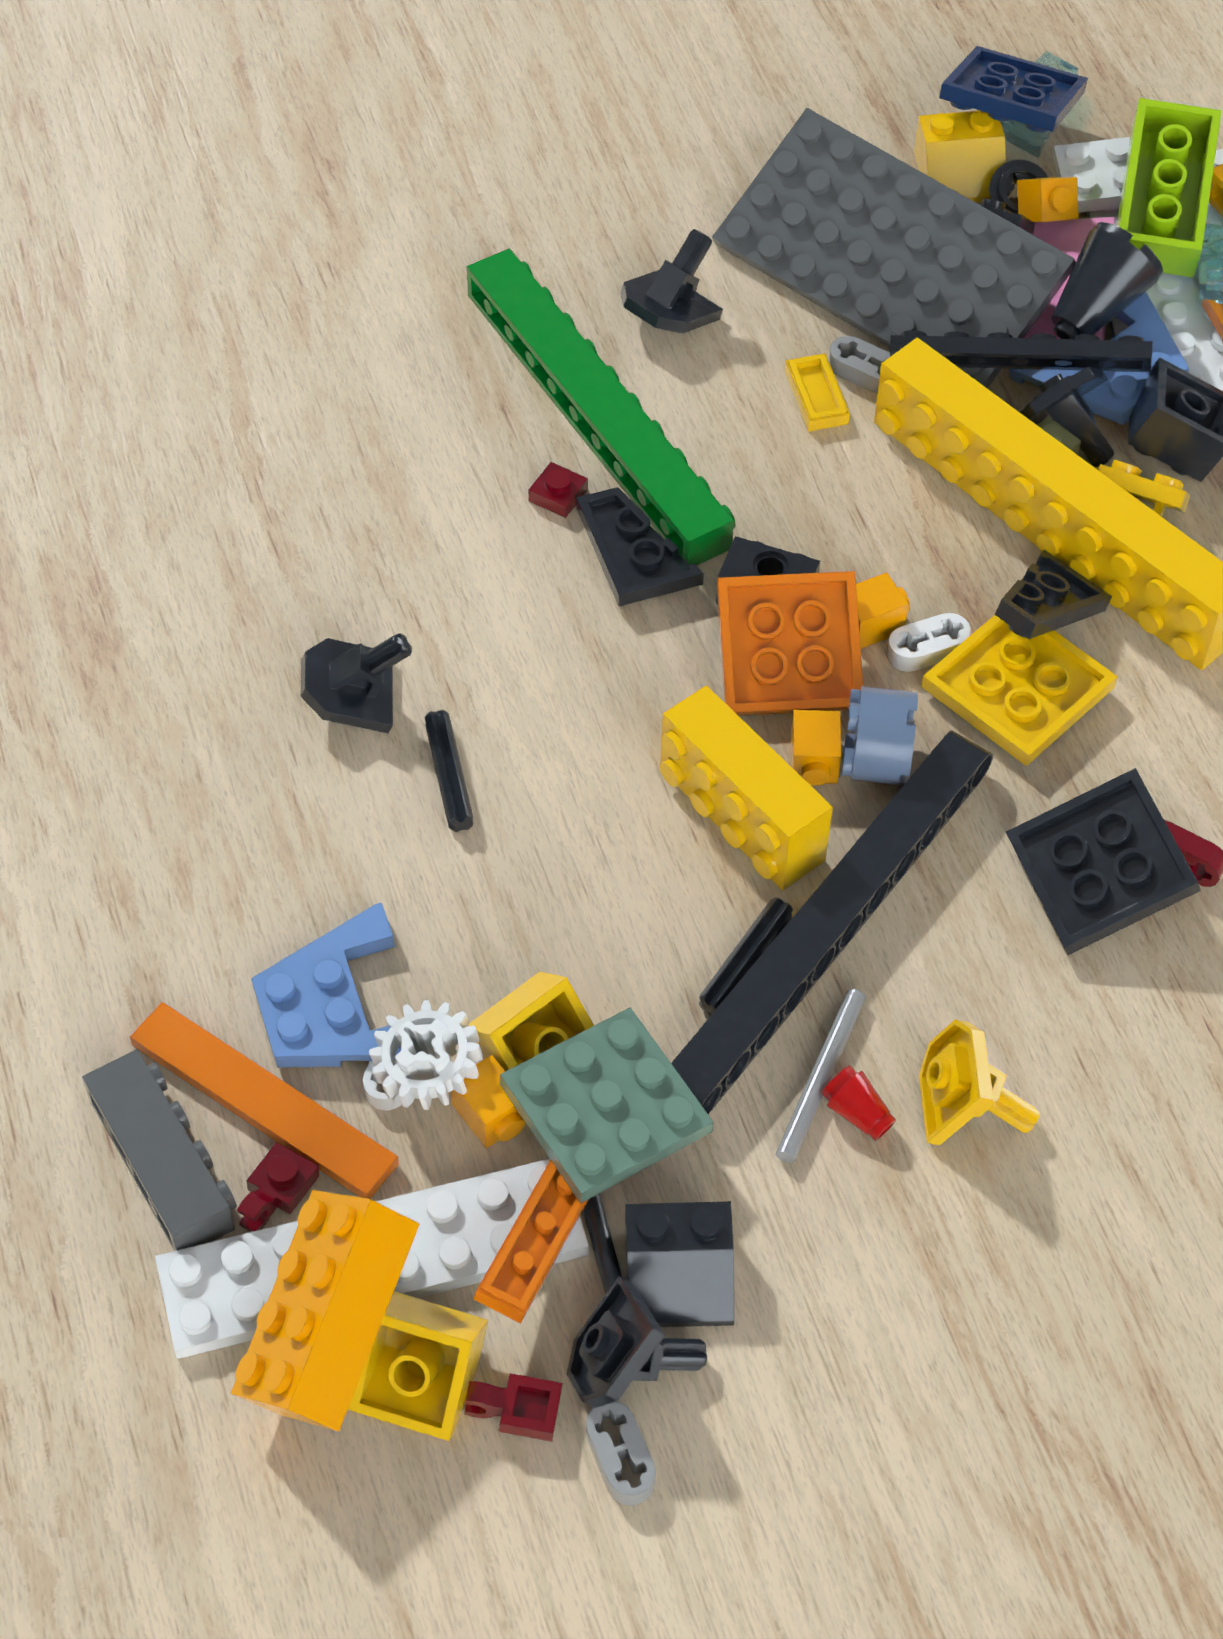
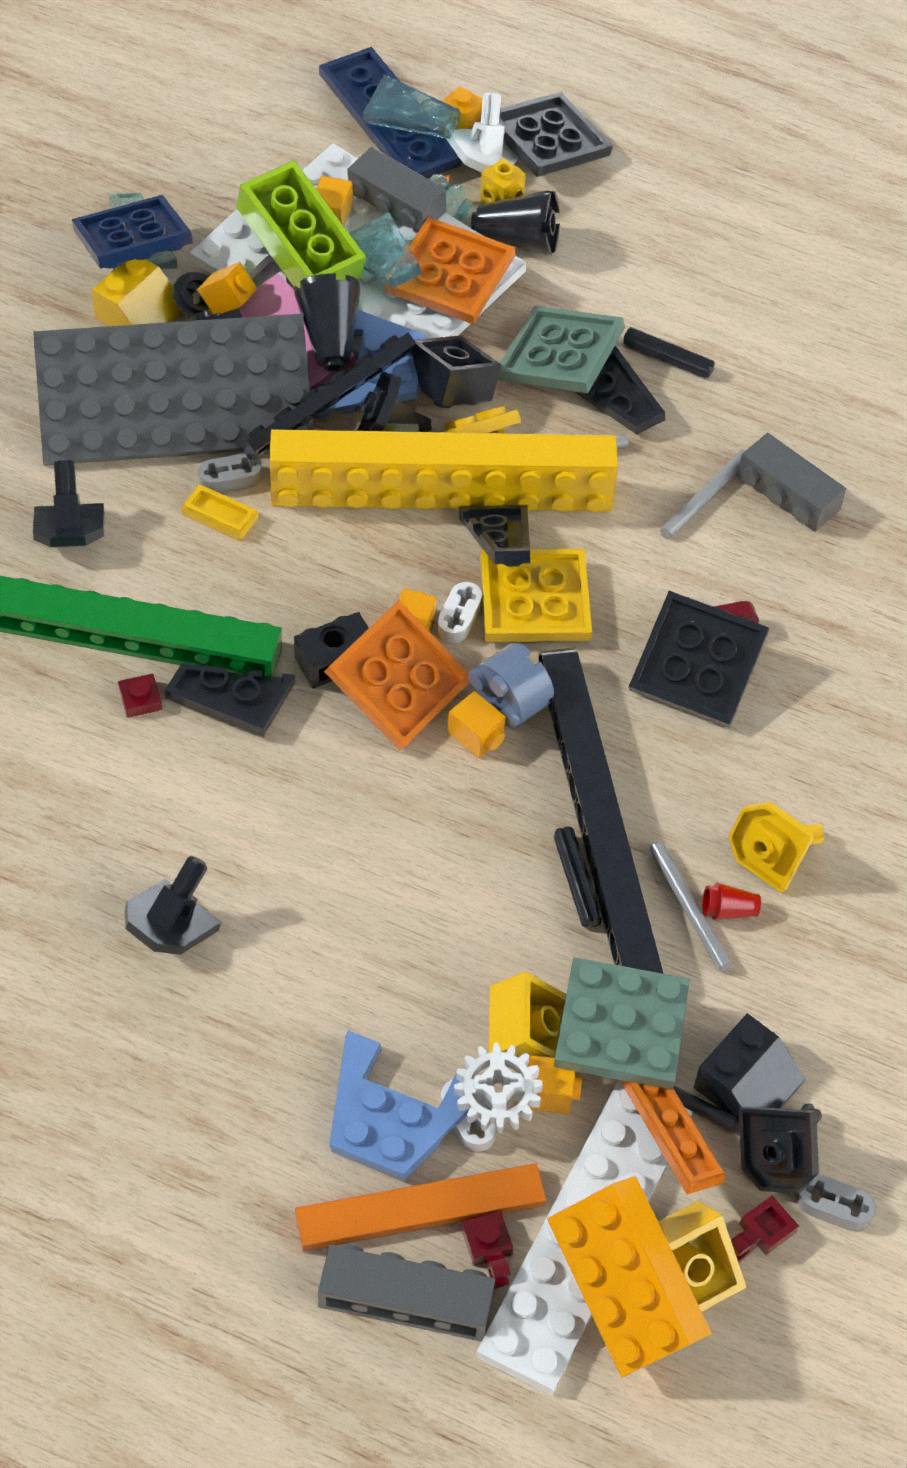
camera: 50 degrees left, 0 degrees up
(449, 770) = (287, 919): black axle -> none
(744, 788) = (476, 779): yellow brick -> none

